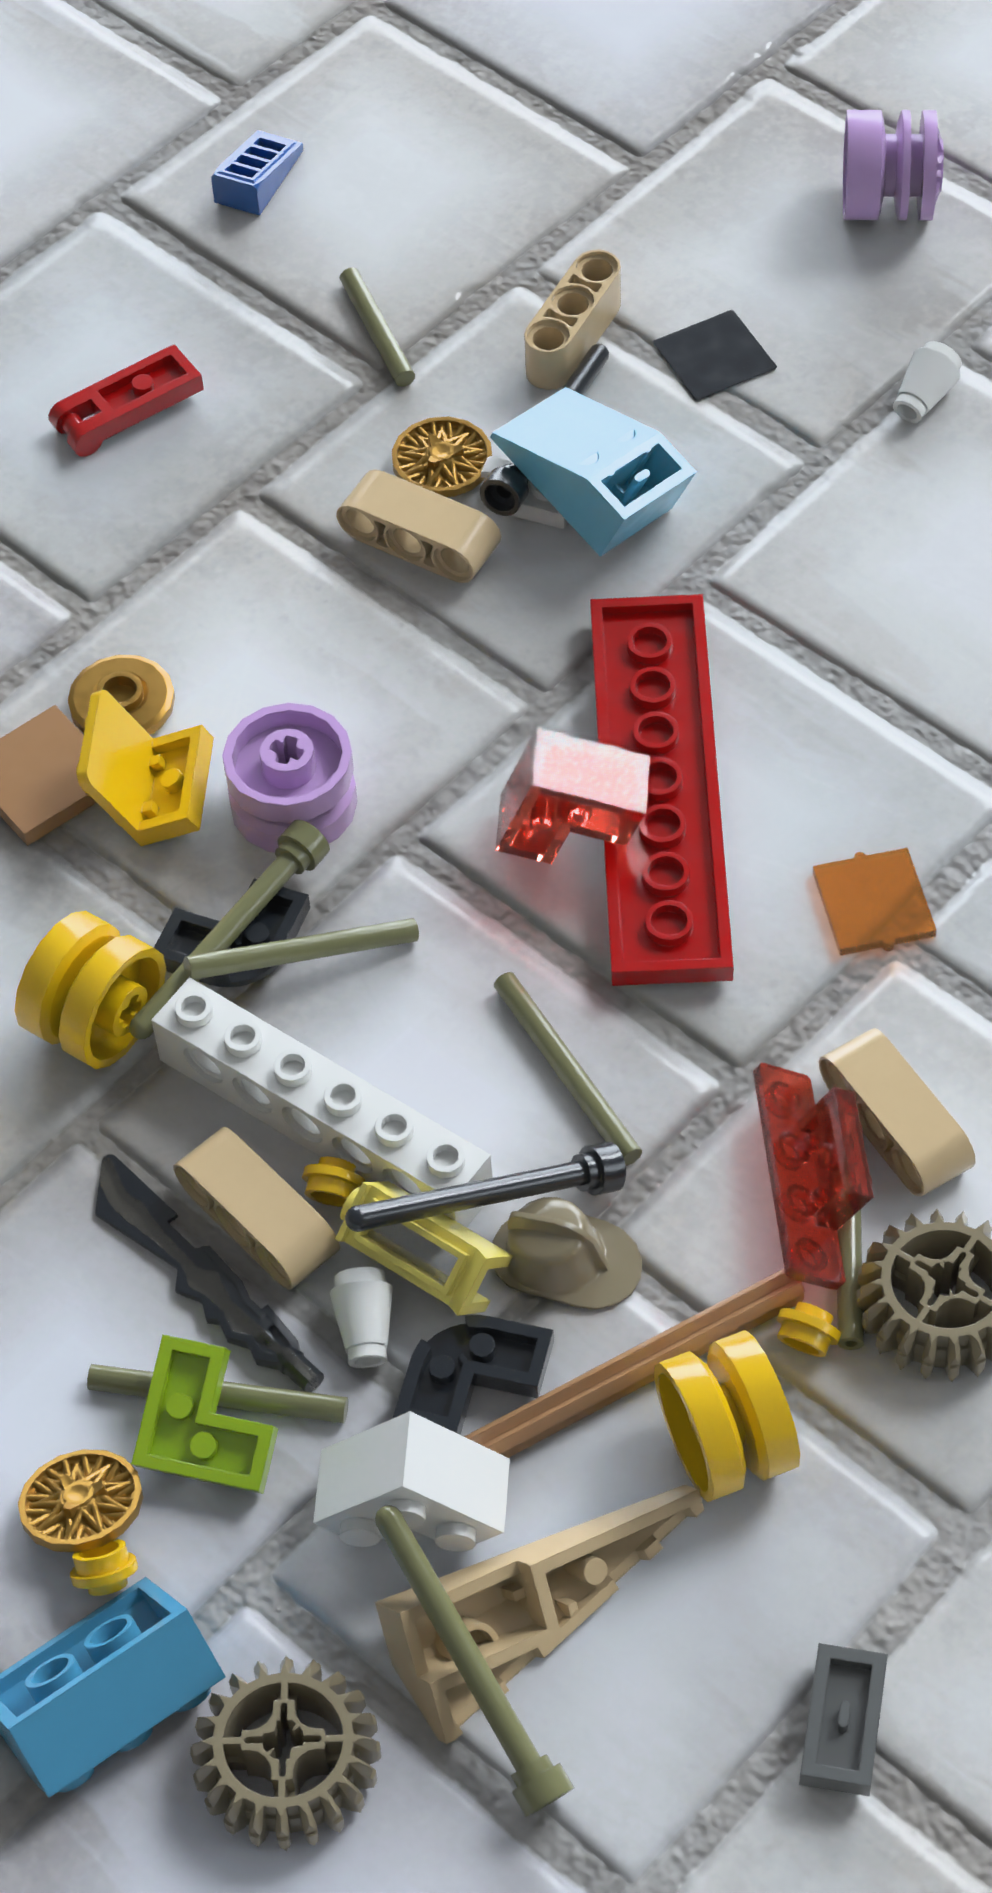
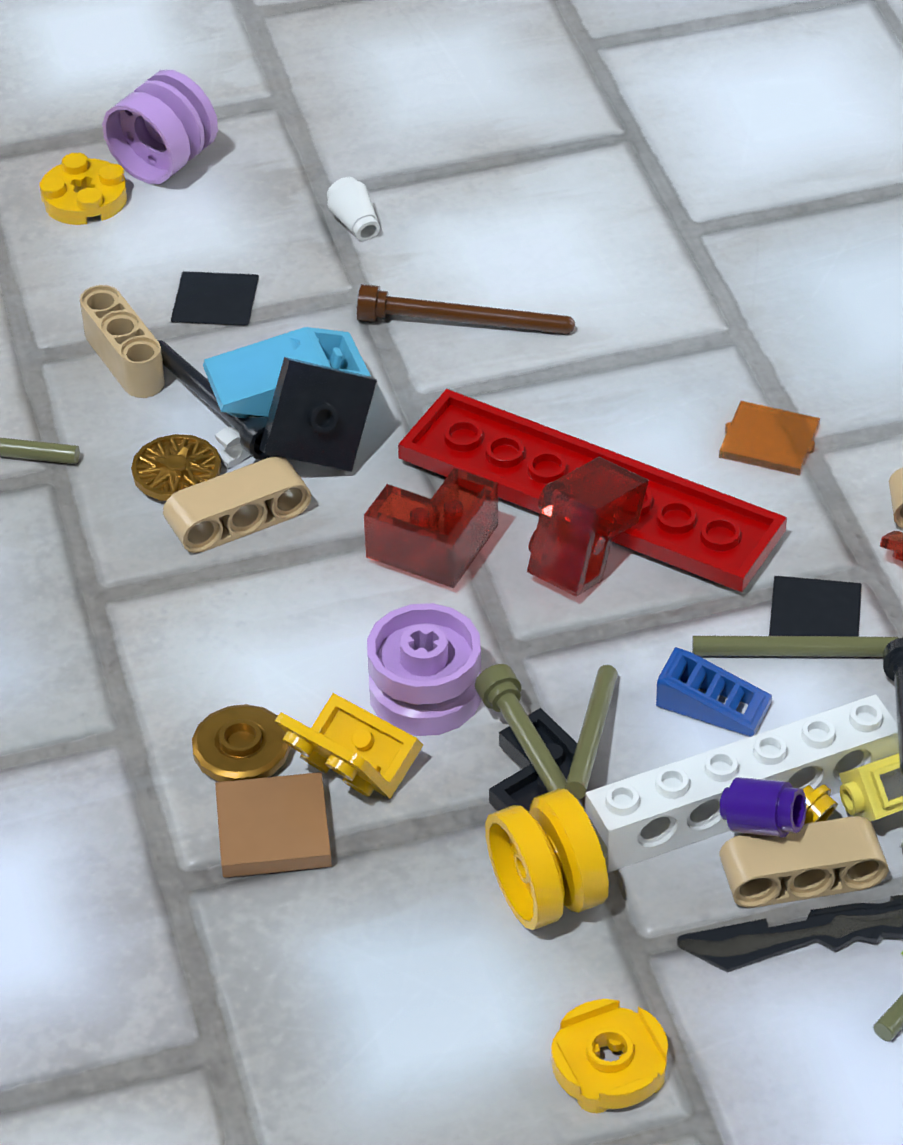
camera: 60 degrees left, 10 degrees down
(256, 1127) = (763, 807): none -> dark purple brick
(437, 989) = (688, 673): none -> blue slope
(484, 696) = (433, 535): none -> clear red brick
(548, 510) = (317, 414): none -> black plate
(641, 1062) = (814, 607): none -> black sticker
(761, 153) = (83, 189): none -> yellow plate
(795, 474) = (377, 304): none -> reddish brown piece

